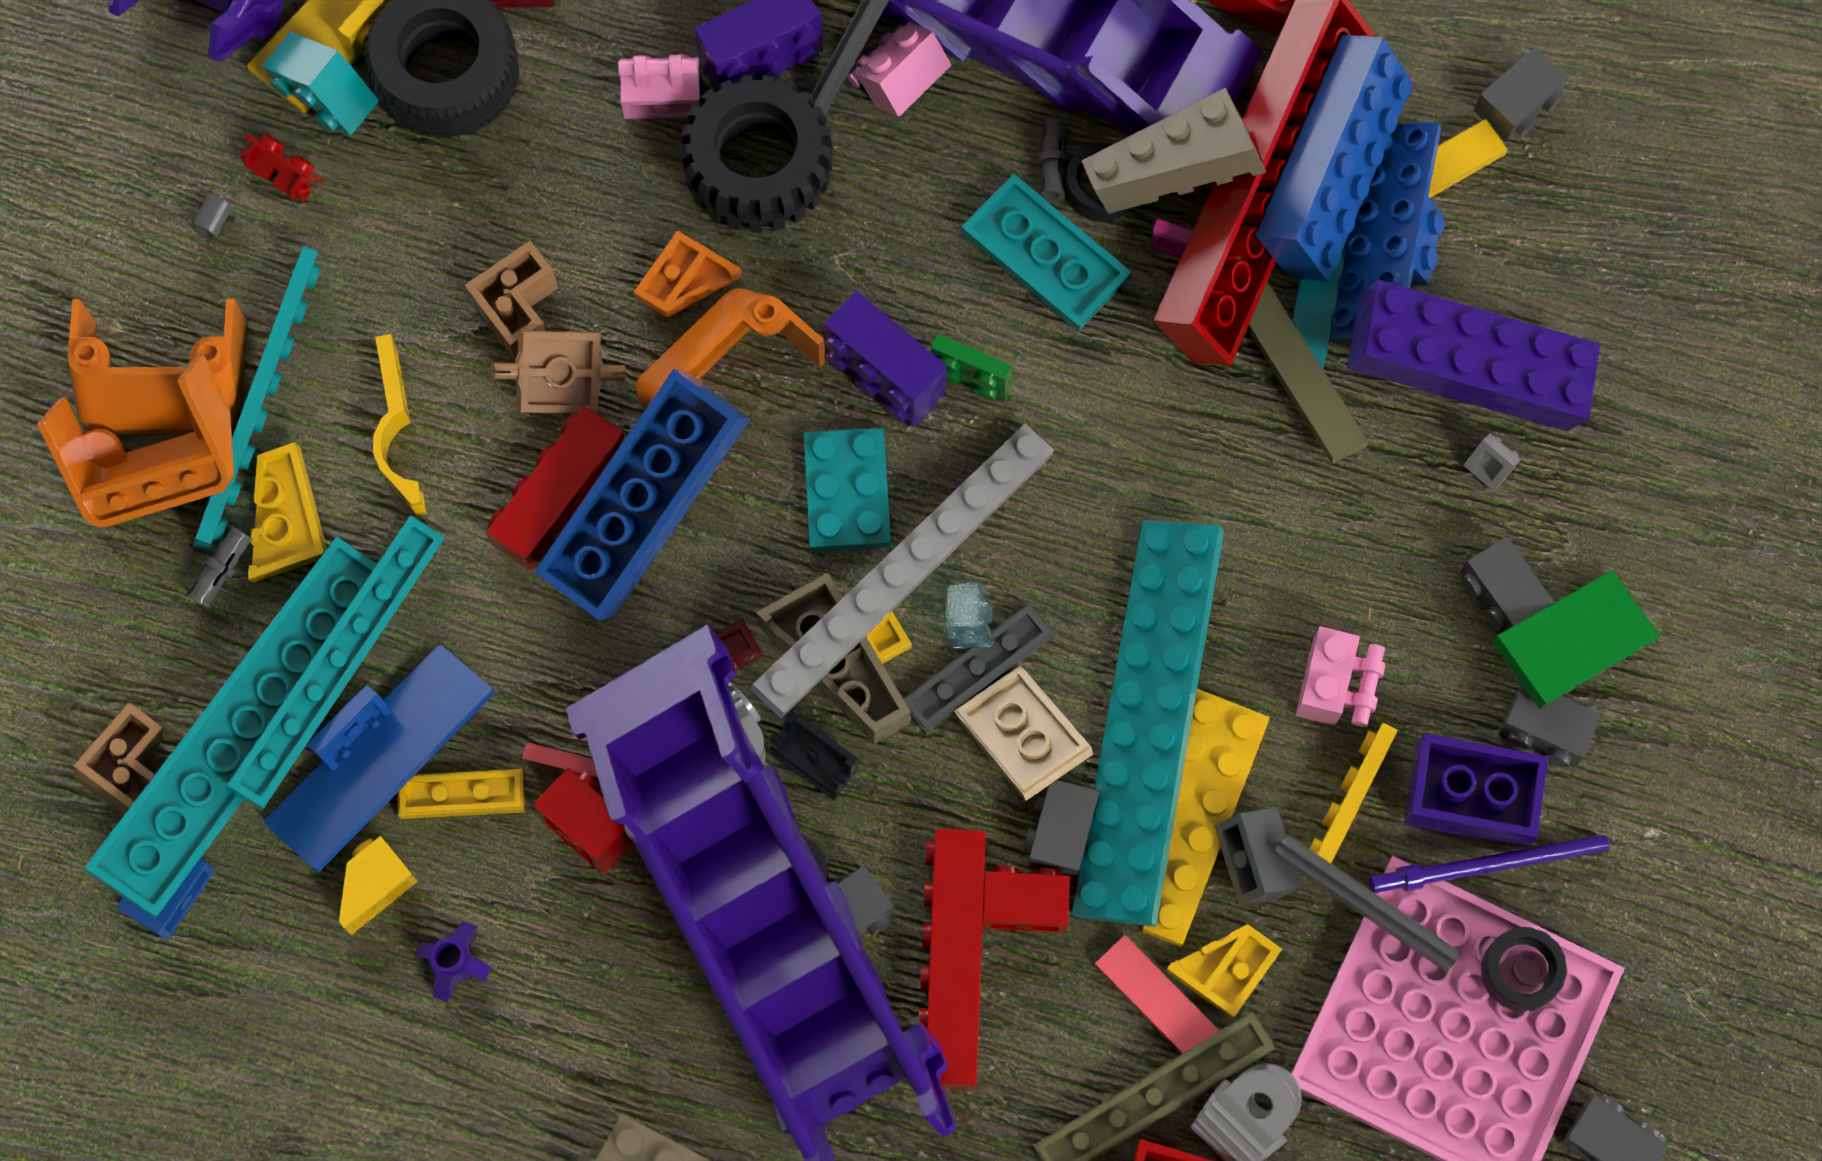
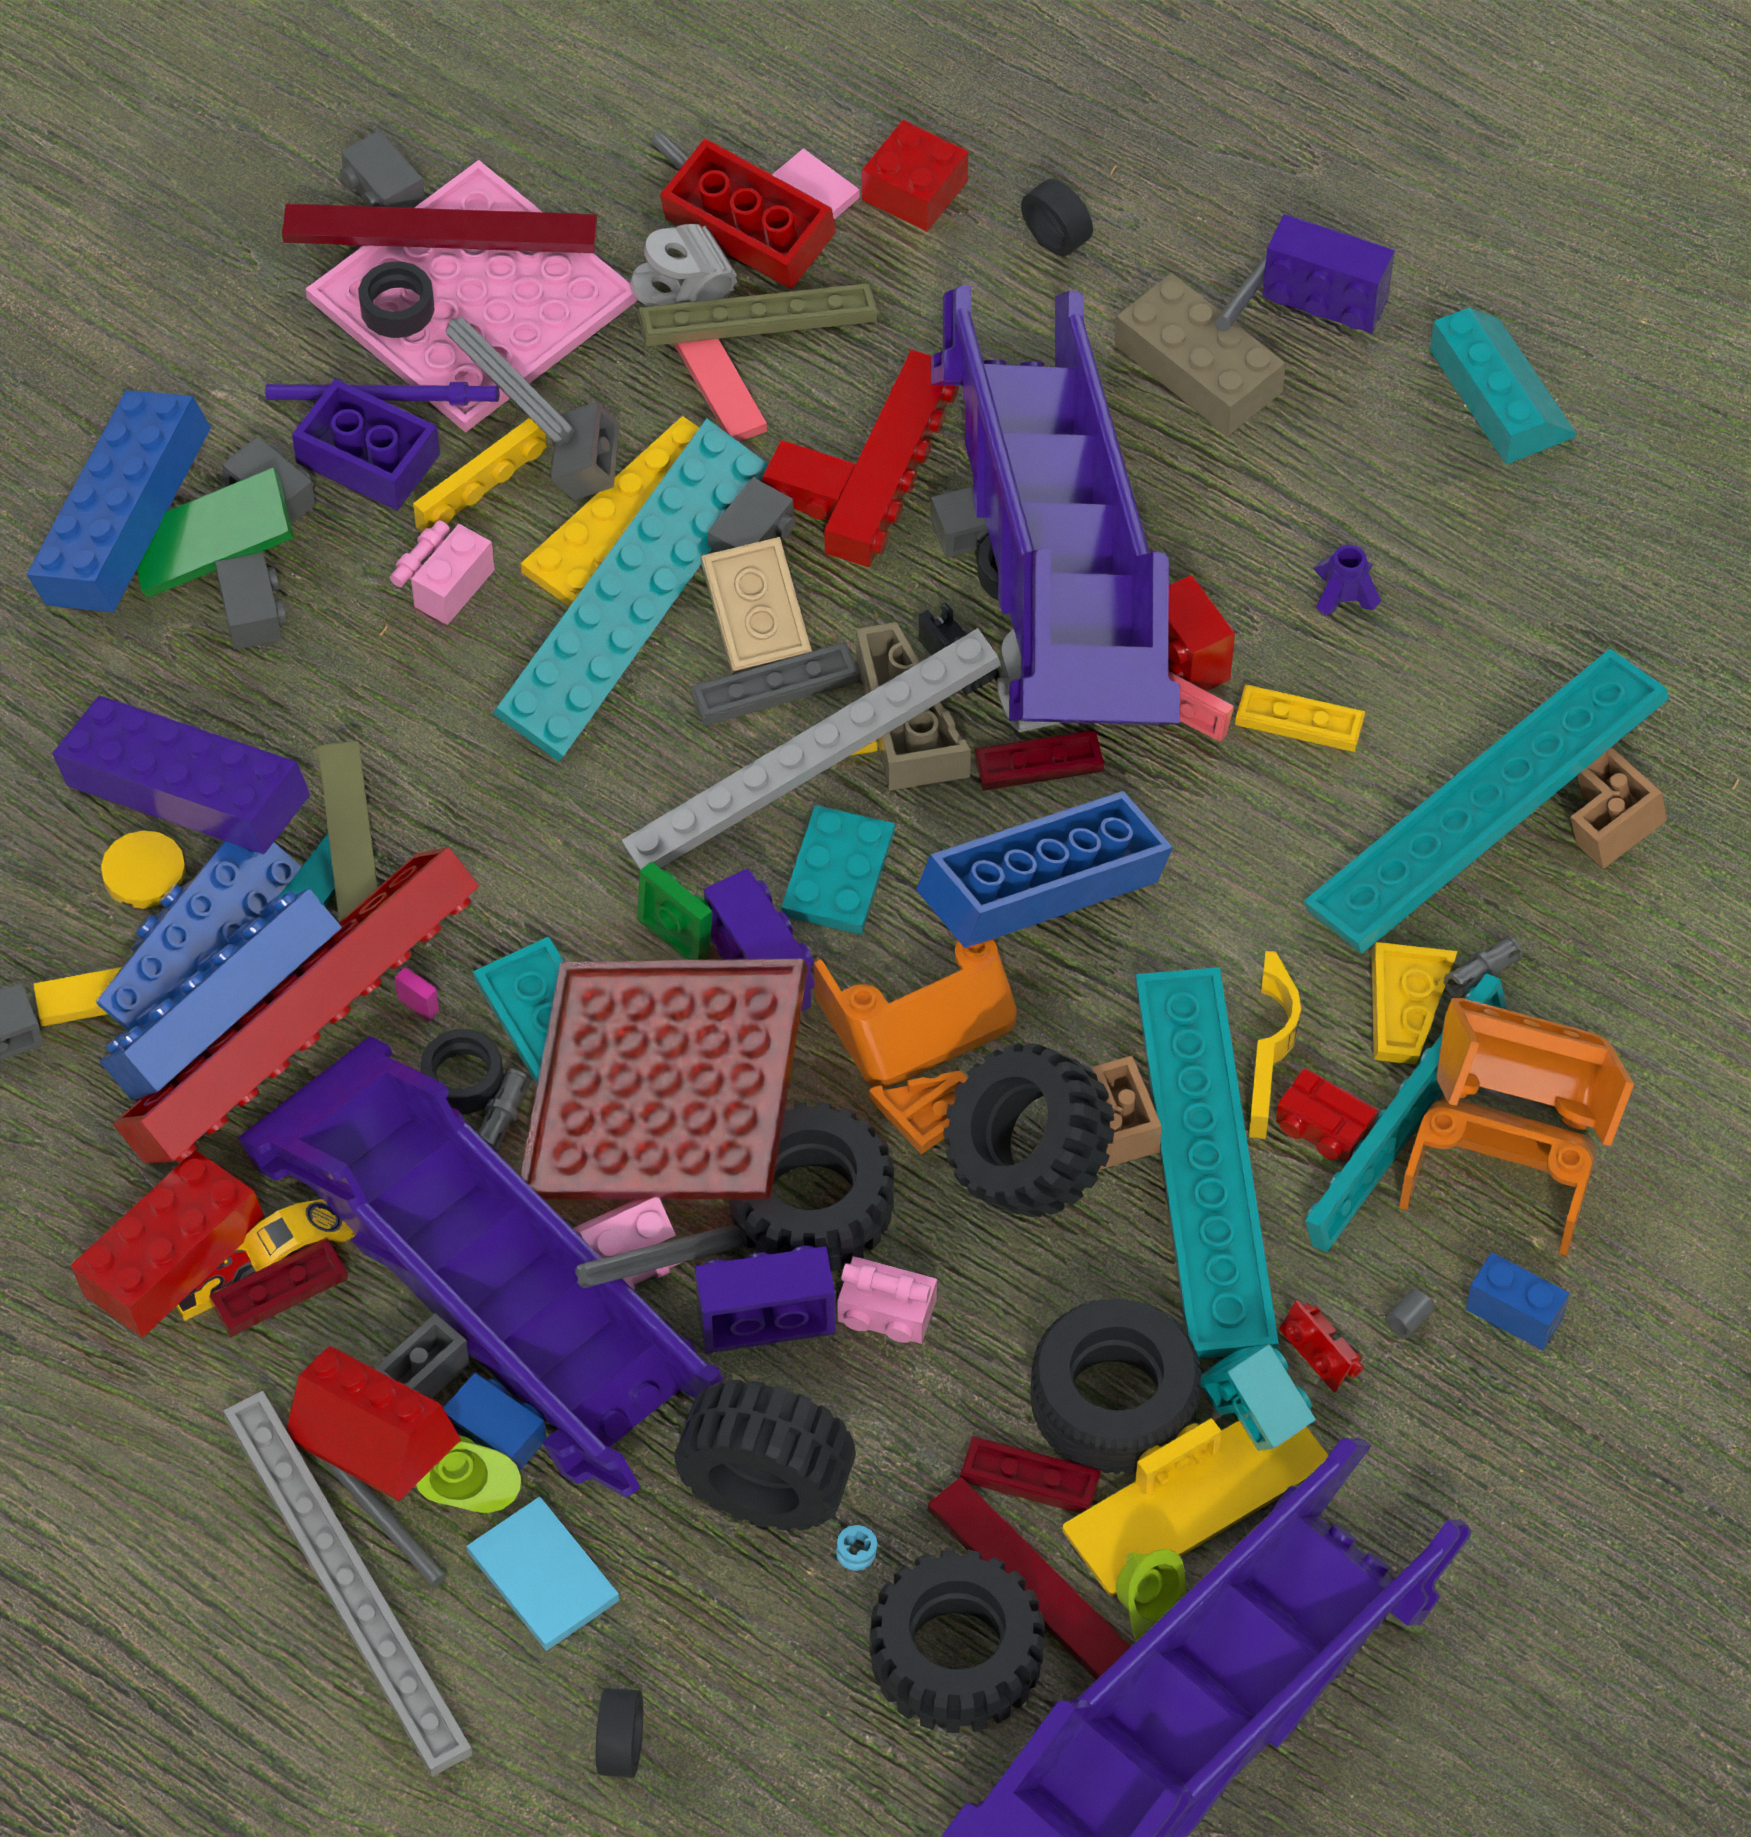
camera: 160 degrees left, 15 degrees down
(117, 246) = (1517, 1301): none -> blue brick
(327, 370) = (1325, 1116): none -> red brick
(335, 663) = (1385, 827): teal plate -> none
(372, 883) = (1402, 659): yellow slope -> none
(374, 752) = (1368, 759): blue bracket -> none
(427, 304) = (1205, 1162): none -> teal plate
(555, 488) = (1125, 942): red brick -> none
(557, 371) = (1093, 1029): medium nougat plate -> none
(558, 262) = (1071, 1145): none -> black tyre
(913, 185) = (665, 1079): none -> clear red plate
(968, 616) = (766, 713): clear light blue brick -> none
(1174, 155) = (386, 1011): dark tan wedge -> none
(1227, 968) = (650, 388): yellow wing -> none
(1472, 282) = (142, 868): none -> yellow tile
(1492, 462) = (204, 706): light grey tile -> none
(1521, 1084) = (439, 228): none -> dark red tile
(1679, 646) = (119, 501): none -> blue brick

